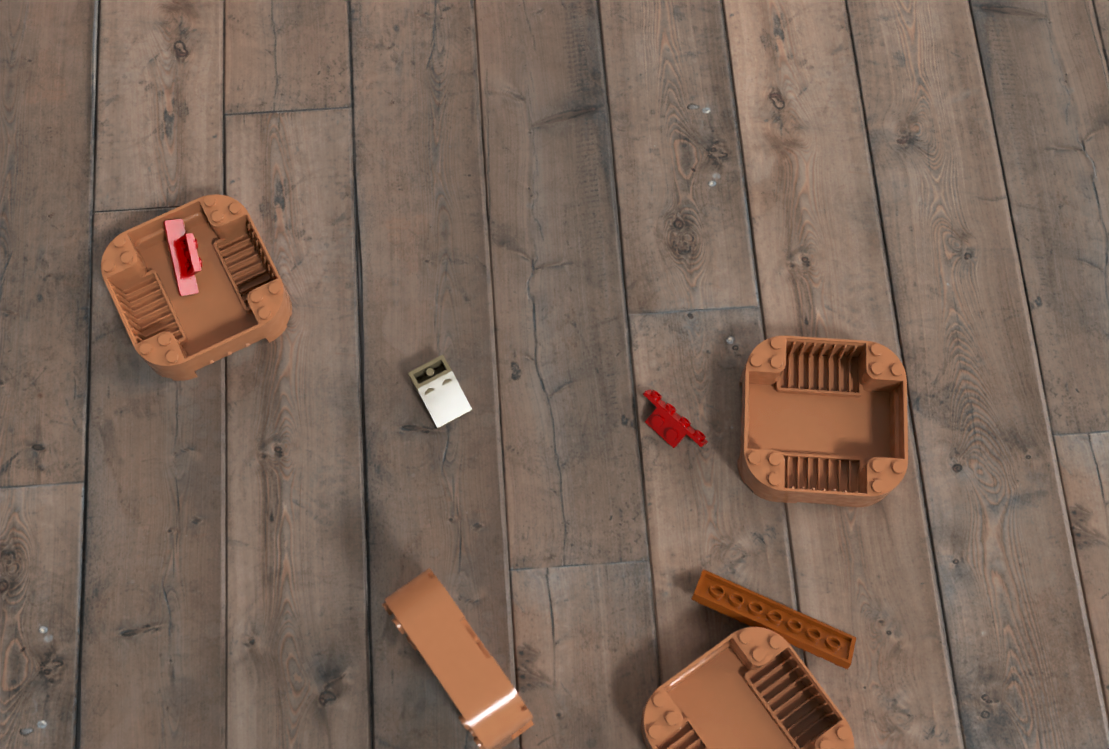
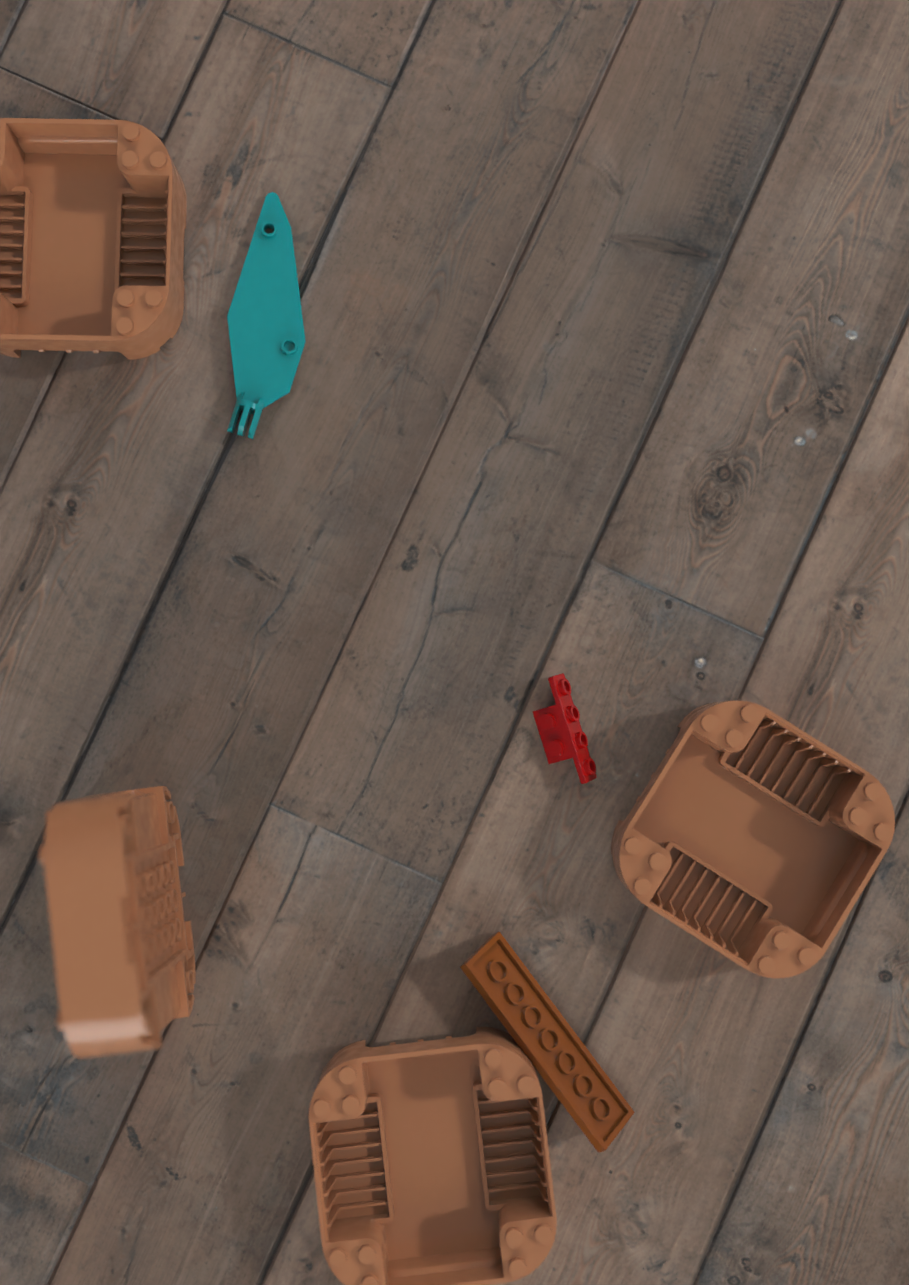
camera: 30 degrees right, 15 degrees up
(183, 256) = (68, 189): bracket -> none
(346, 274) = (265, 319): none -> teal wing
(439, 391) = (300, 539): slope -> none

